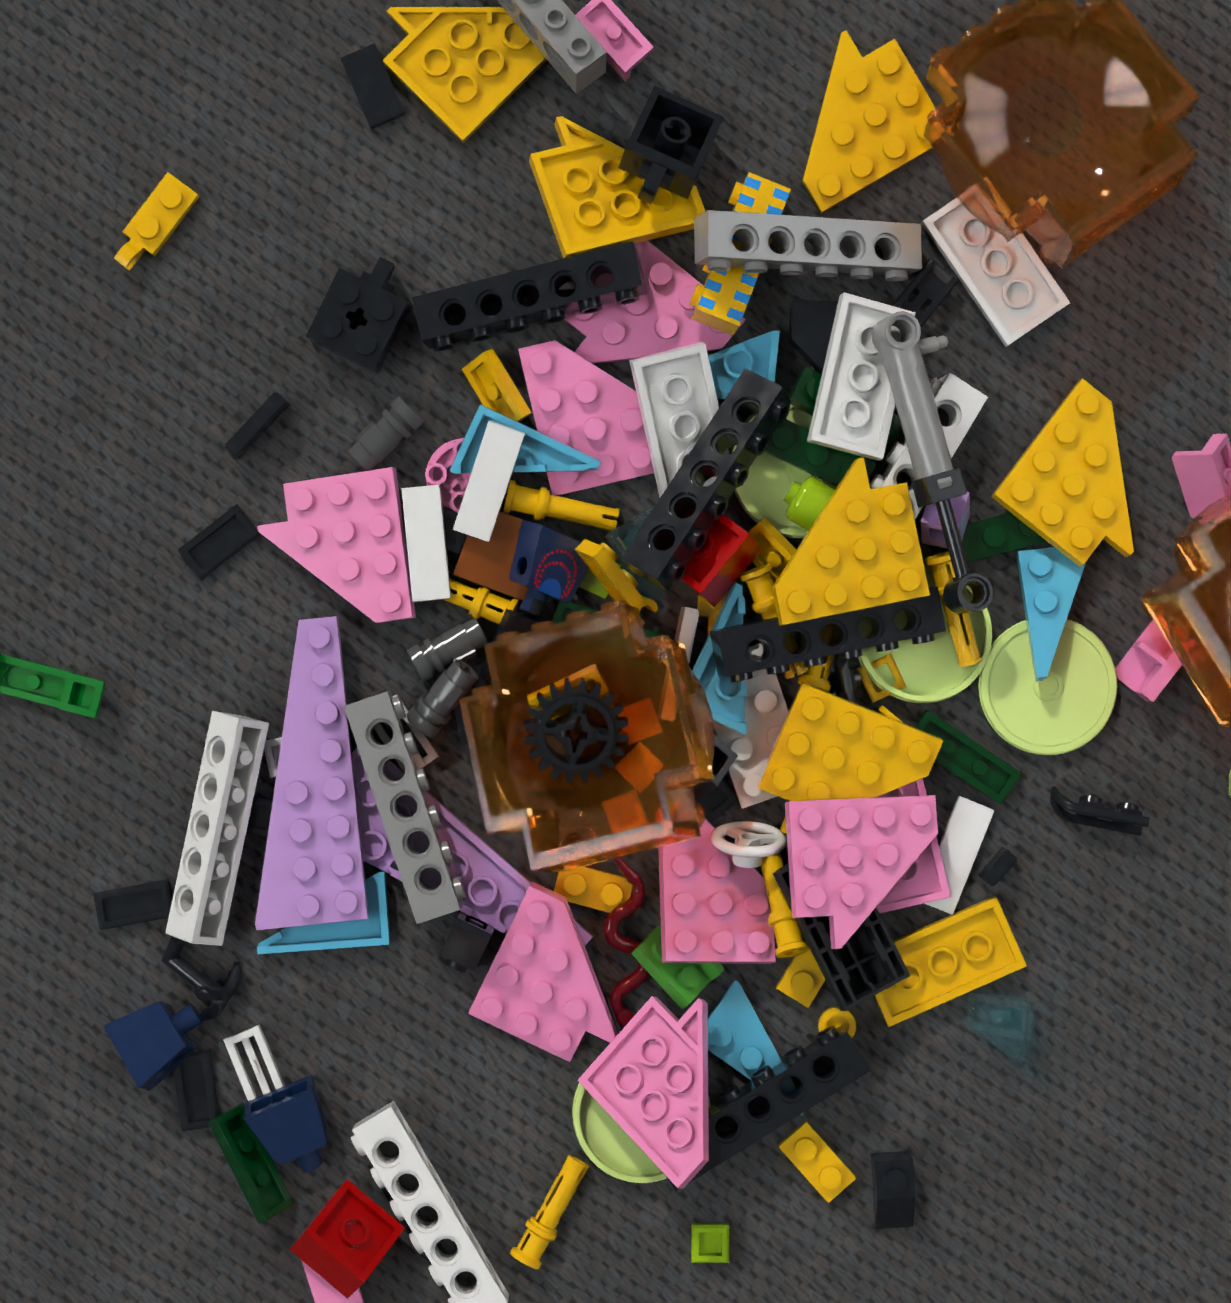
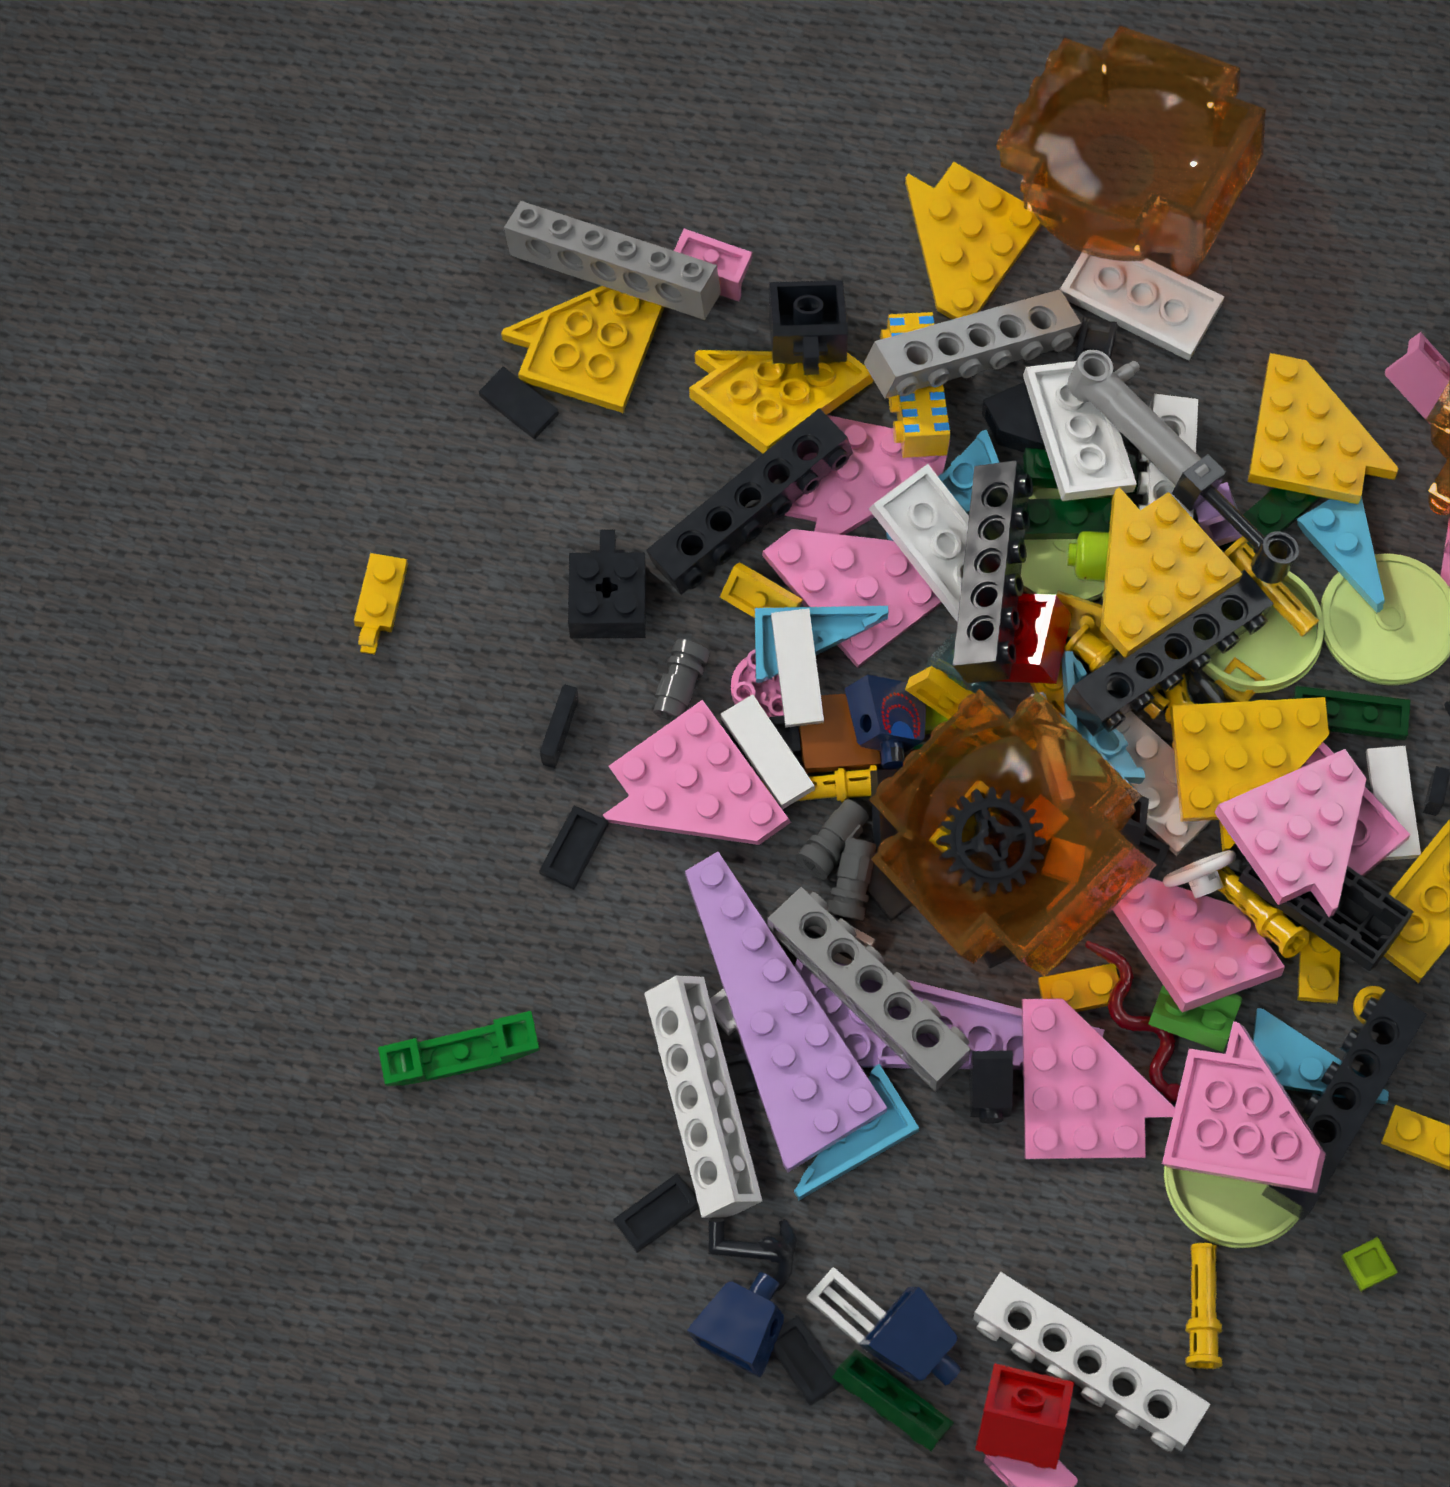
camera: 20 degrees left, 20 degrees down
(542, 504) = (840, 676): yellow pin -> none

